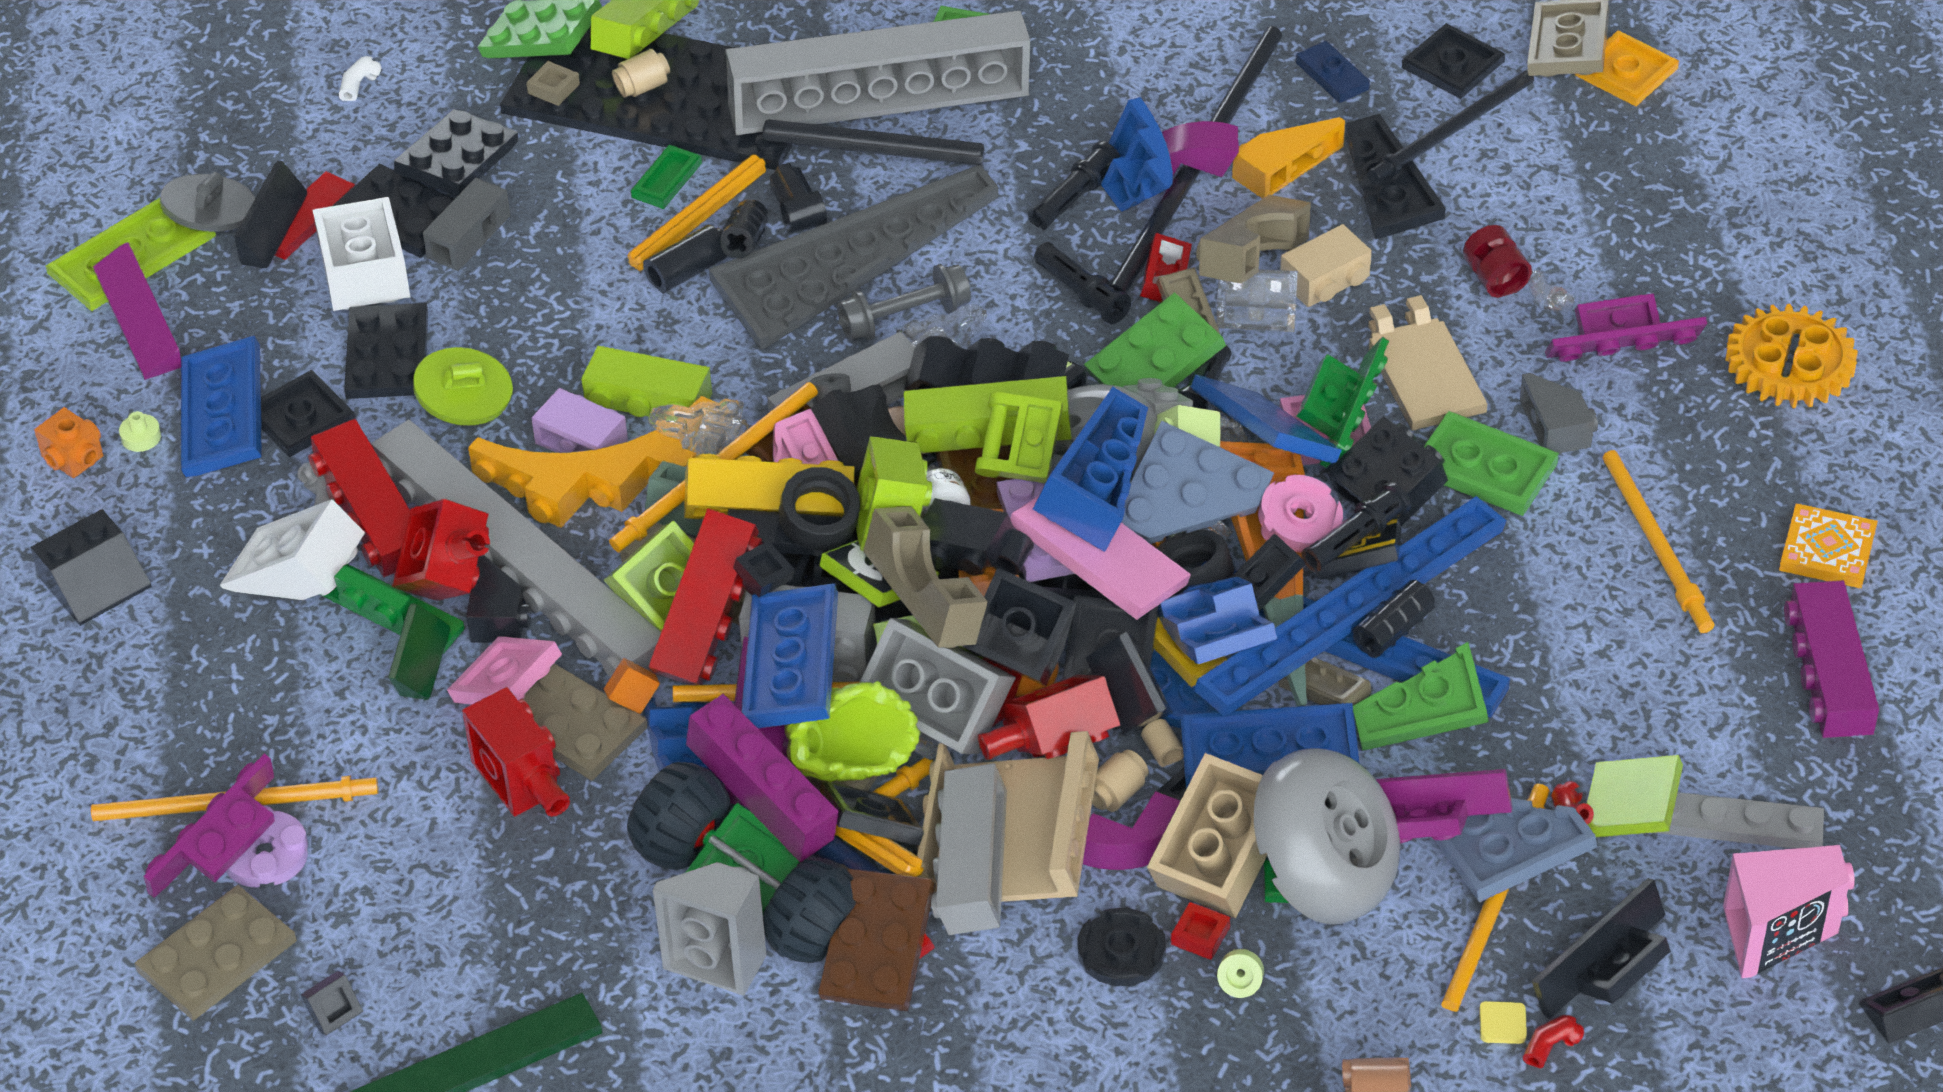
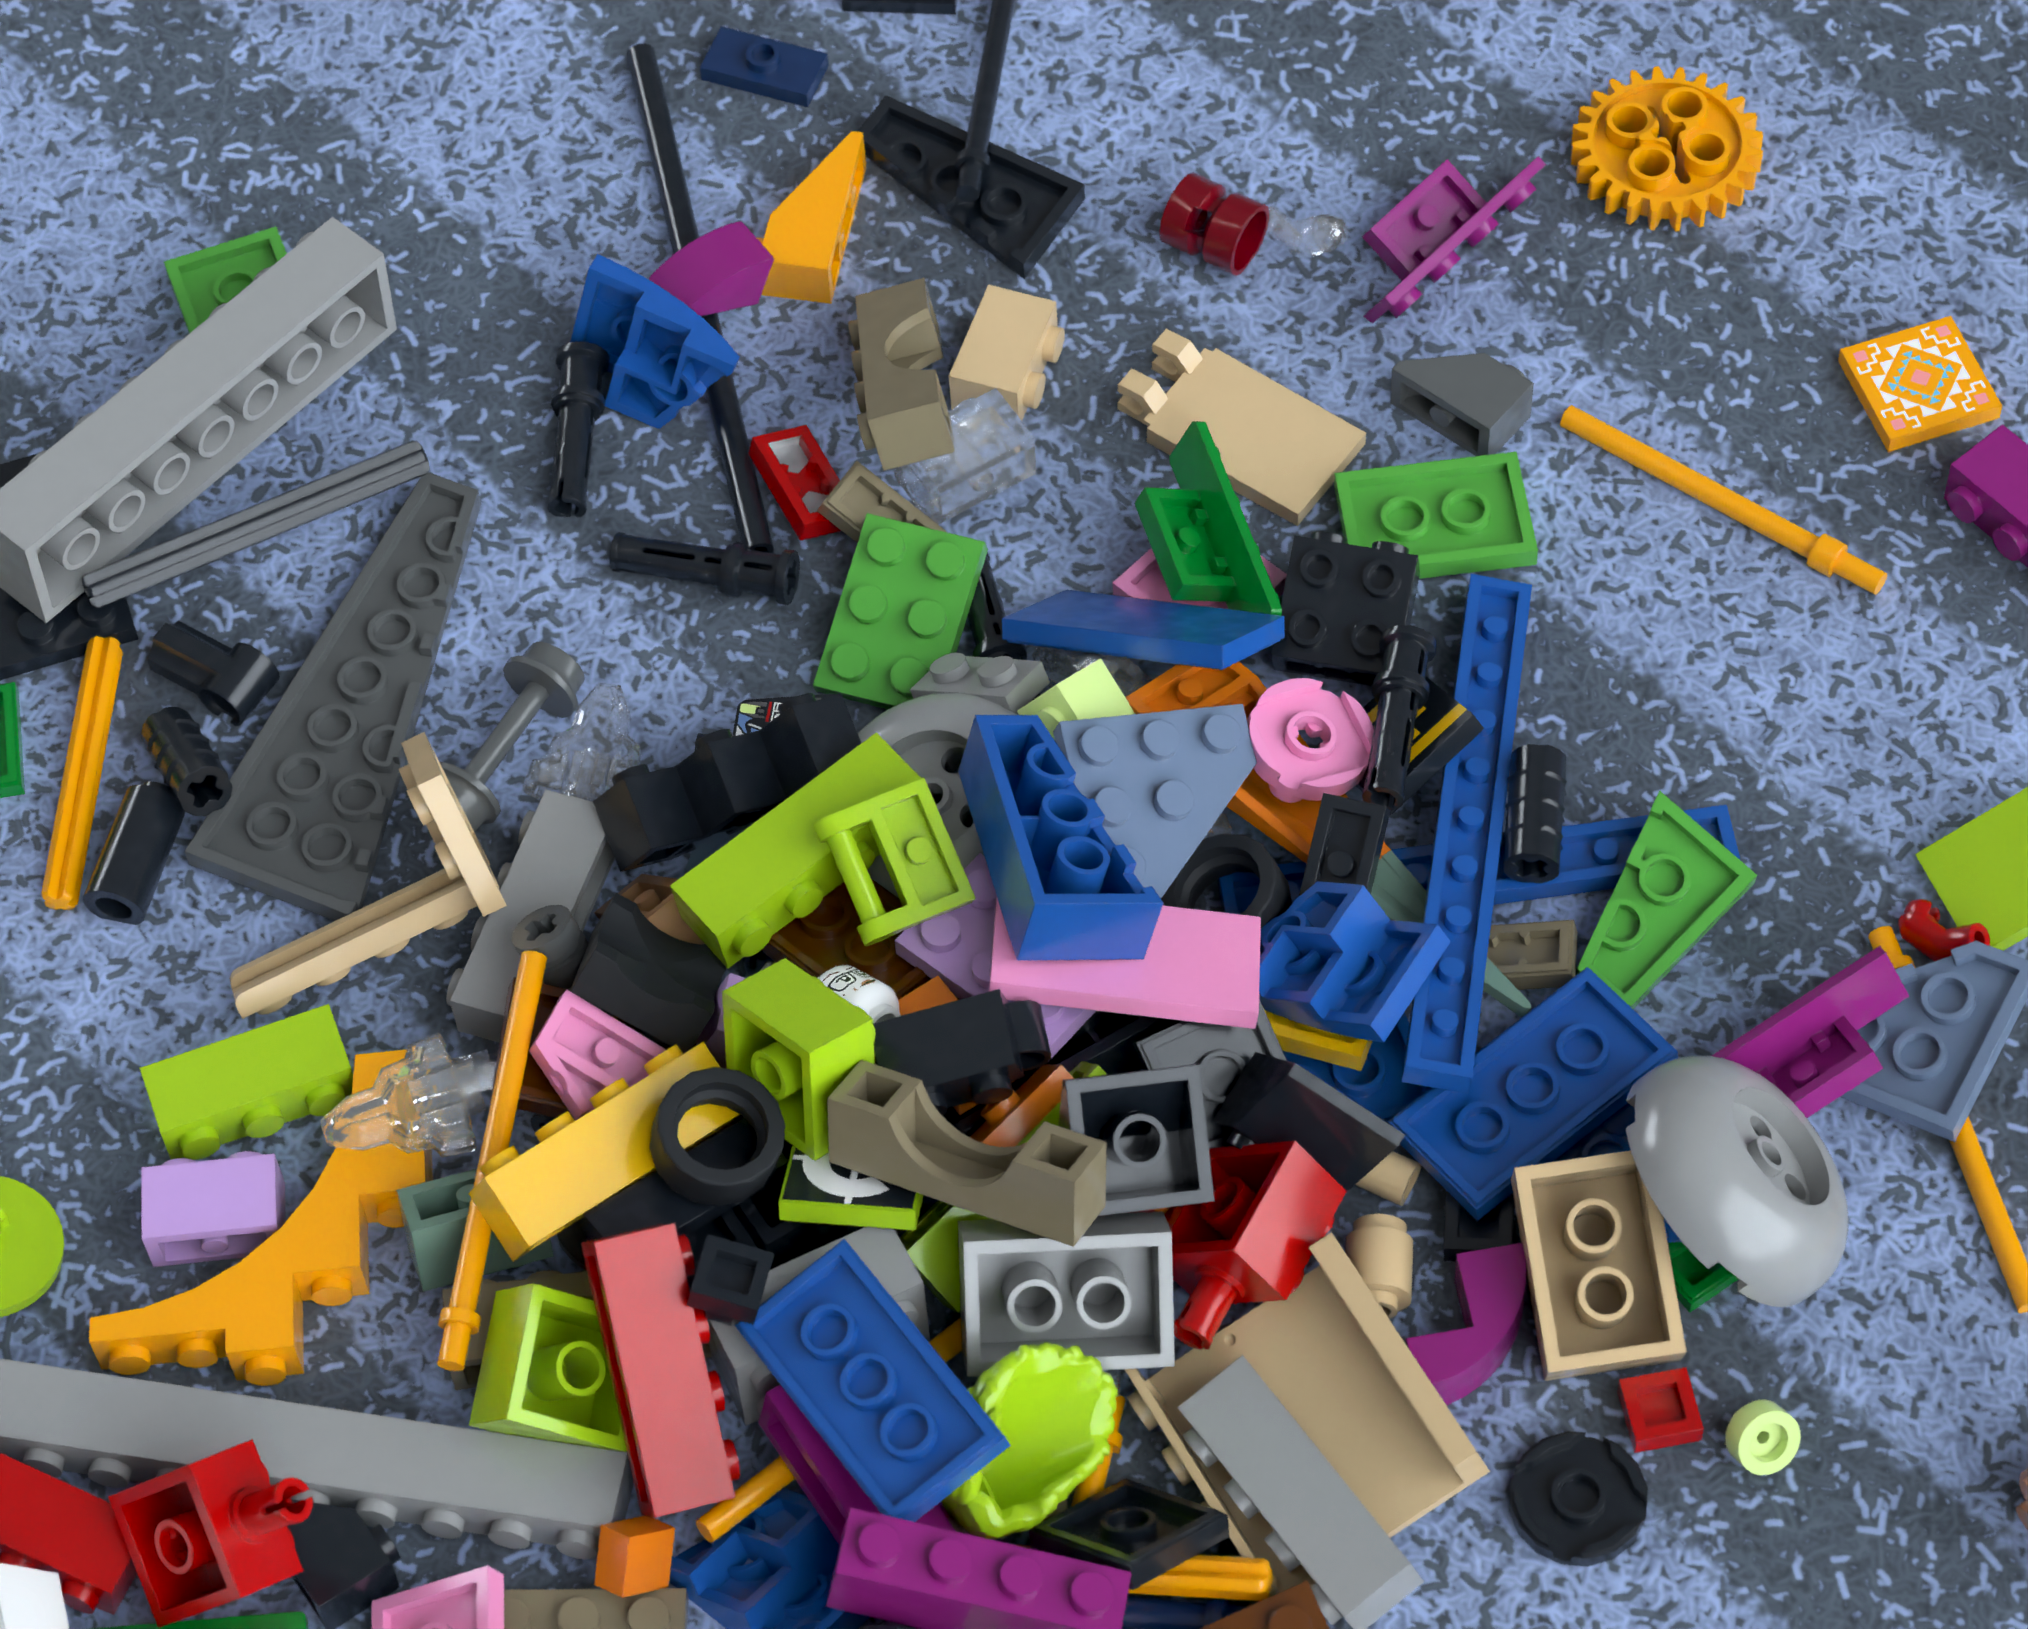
camera: 35 degrees left, 10 degrees up
(828, 327) = (391, 921): none -> tan bracket

